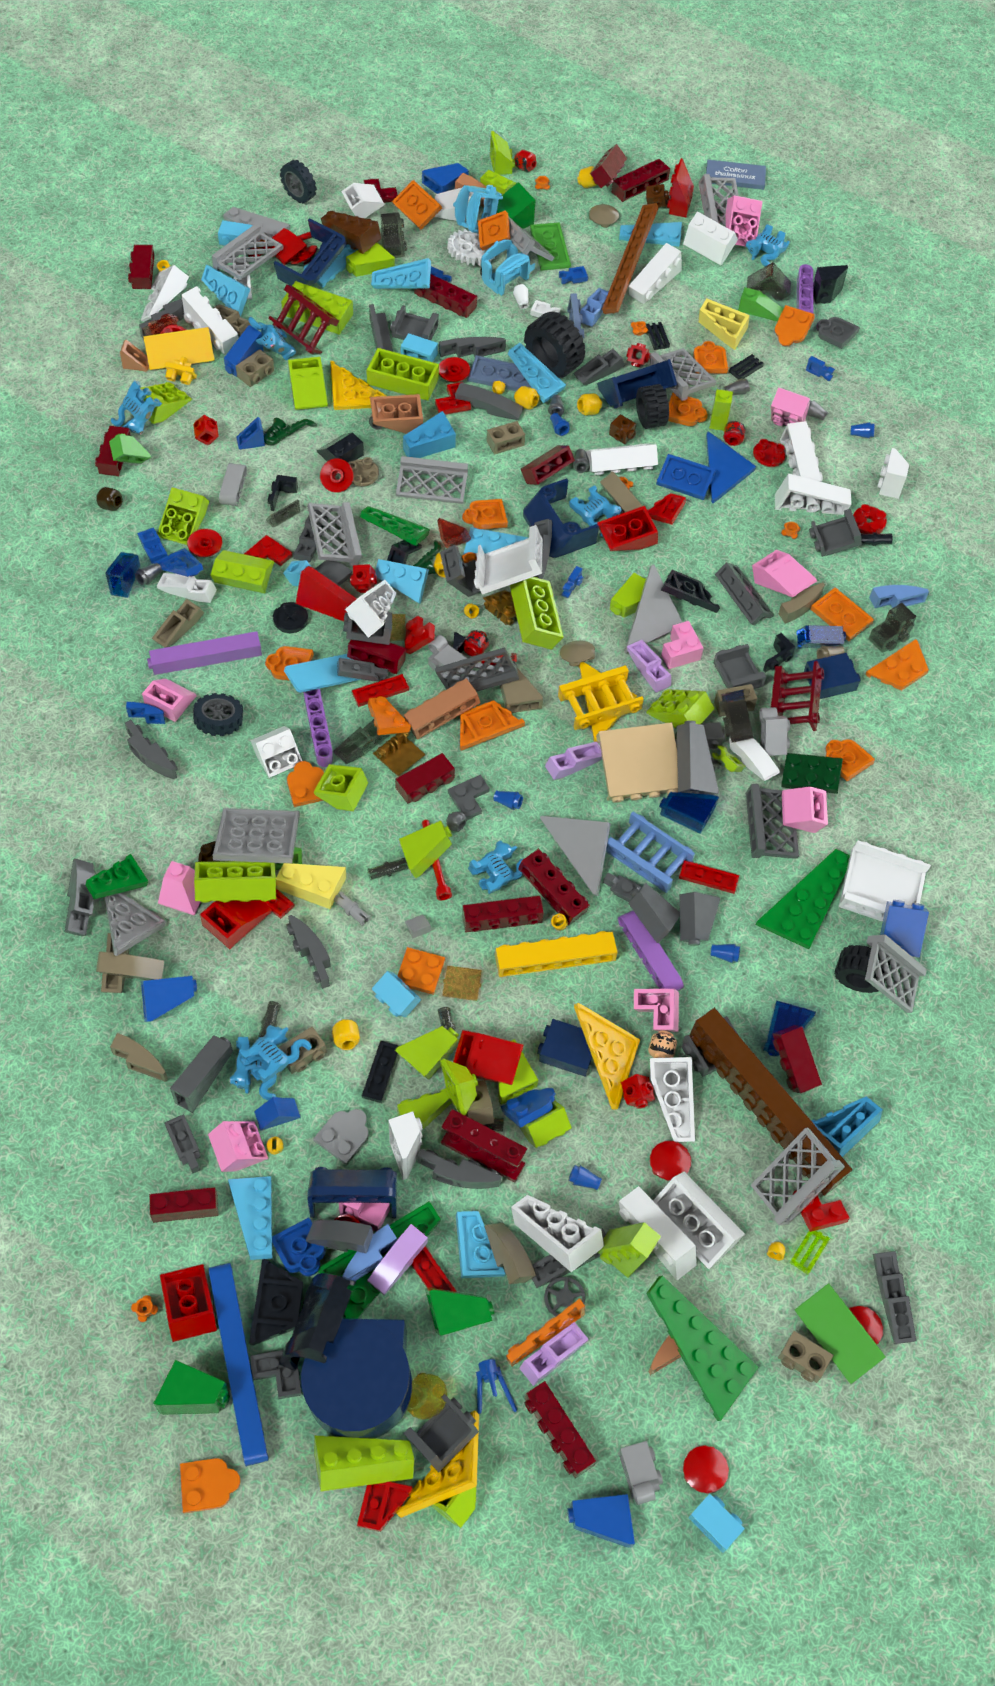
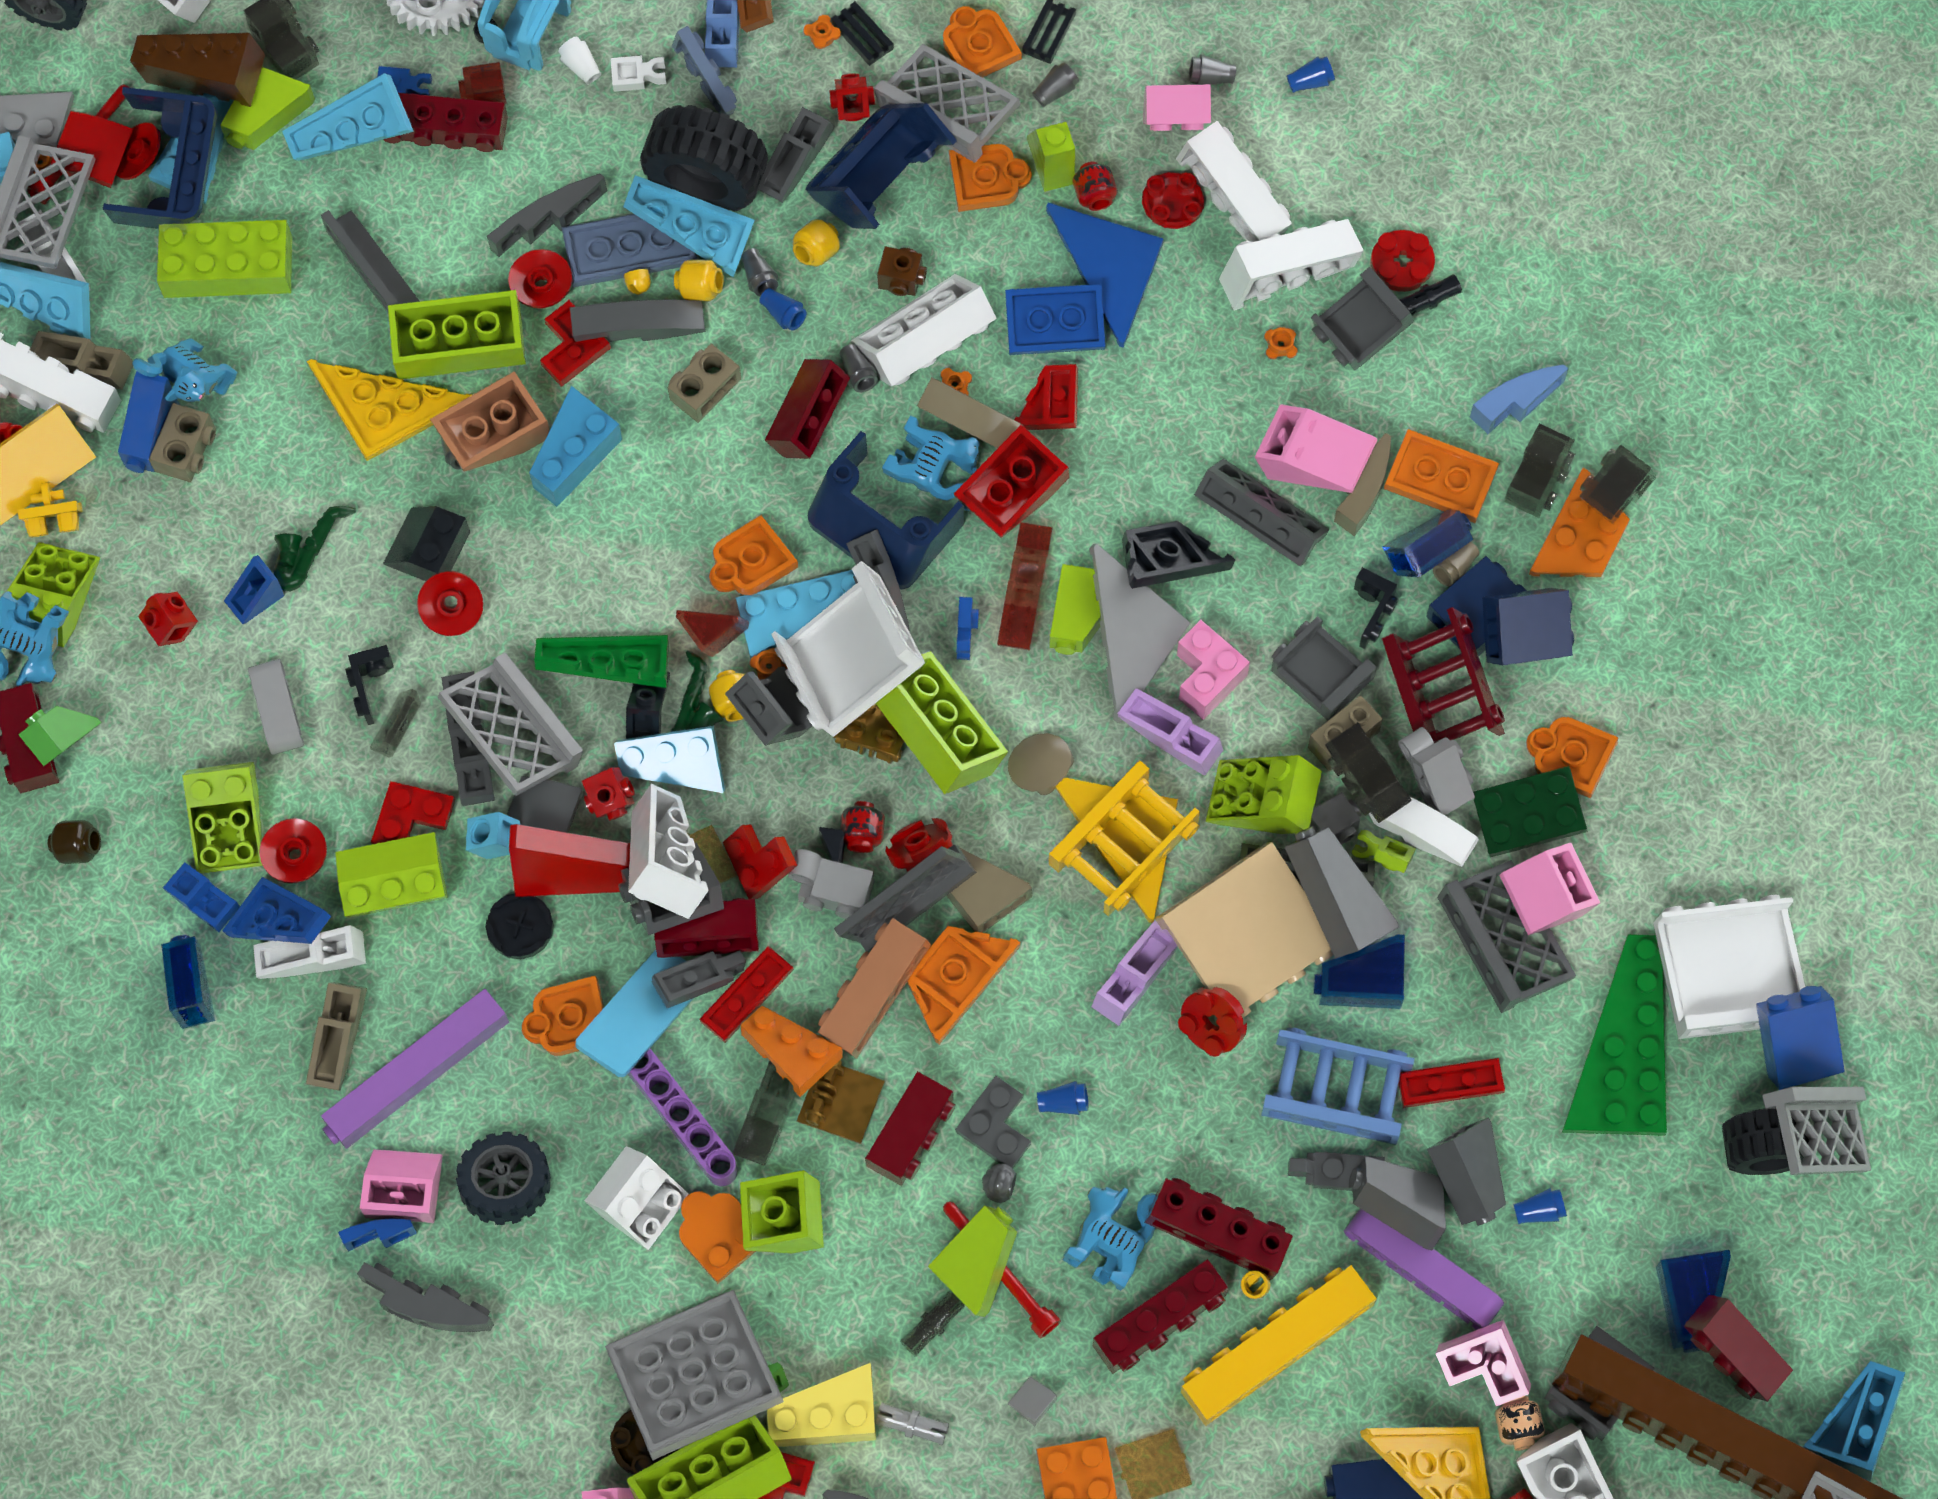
camera: 20 degrees left, 10 degrees up
(147, 574) = (227, 960): flat silver cone -> none
(307, 383) = (296, 433): lime slope -> none
(316, 311) = (239, 281): dark red fence -> none
(364, 471) = (493, 569): dark tan dish -> none
(414, 325) = (421, 217): dark grey panel -> none
(419, 348) = (456, 264): medium azure brick -> none
(436, 467) = (613, 506): light grey fence -> none
(474, 286) = (483, 83): none -> clear red brick
(474, 608) = (827, 767): yellow hinge -> none
(583, 844) = (1227, 1126): light grey tile -> none
(593, 790) = (1199, 1029): none -> red plate
(611, 577) = (1025, 586): none -> clear red slope
(652, 406) = (933, 204): black tyre -> none
(852, 689) = (1527, 626): none -> dark blue brick
(893, 474) = (1408, 154): white slope -> none
(930, 647) = (1617, 483): none -> clear smoke brick

